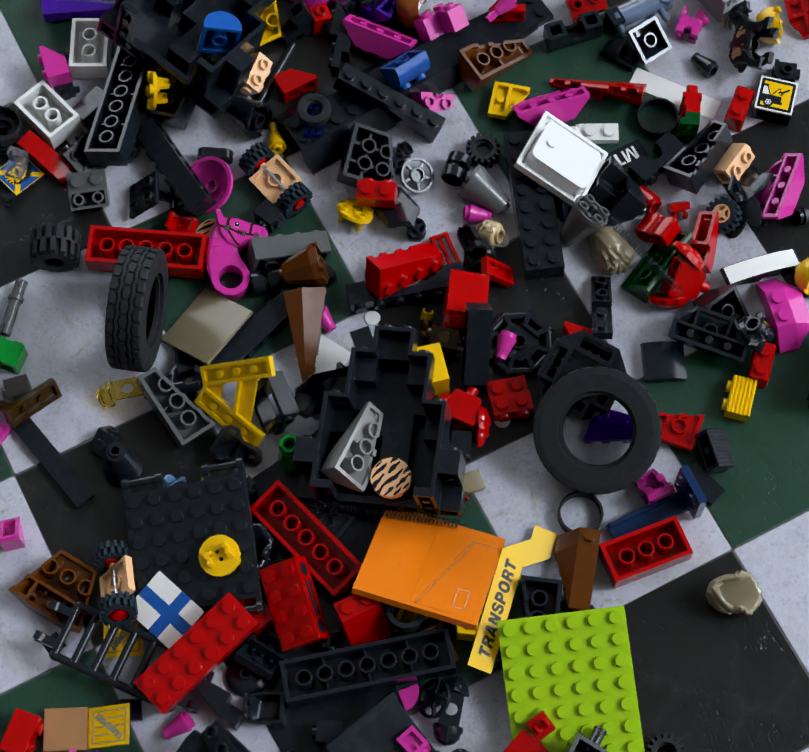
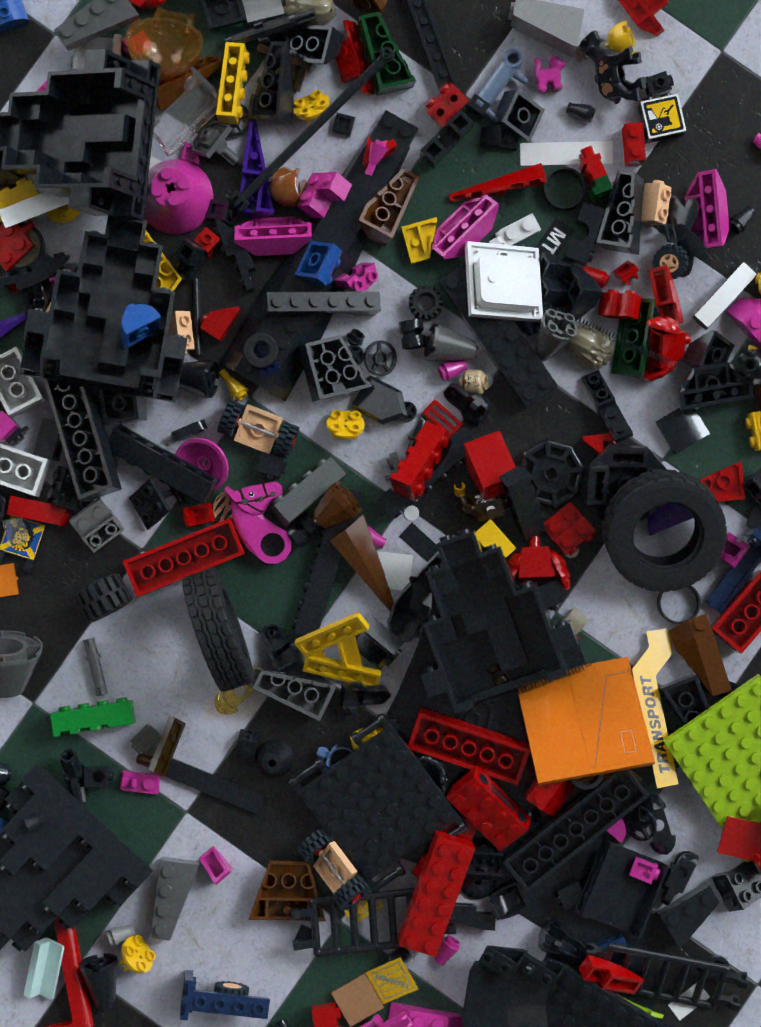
camera: 30 degrees left, 20 degrees up
(153, 90) = (106, 404): yellow plate -> none
(166, 610) = (387, 868): sticker -> none
(206, 326) = (276, 599): dark tan piece -> none
(228, 551) = (414, 798): yellow plate -> none
(286, 452) = (404, 671): green plant -> none
(353, 454) = (471, 660): light grey wedge -> none
(376, 193) = (359, 401): red brick -> none
(391, 478) = (514, 664): light nougat tile -> none
(498, 271) = (500, 419): red tile -> none
(505, 343) = (542, 485): dark pink cone -> none
(540, 726) = (739, 806): red tile -> none

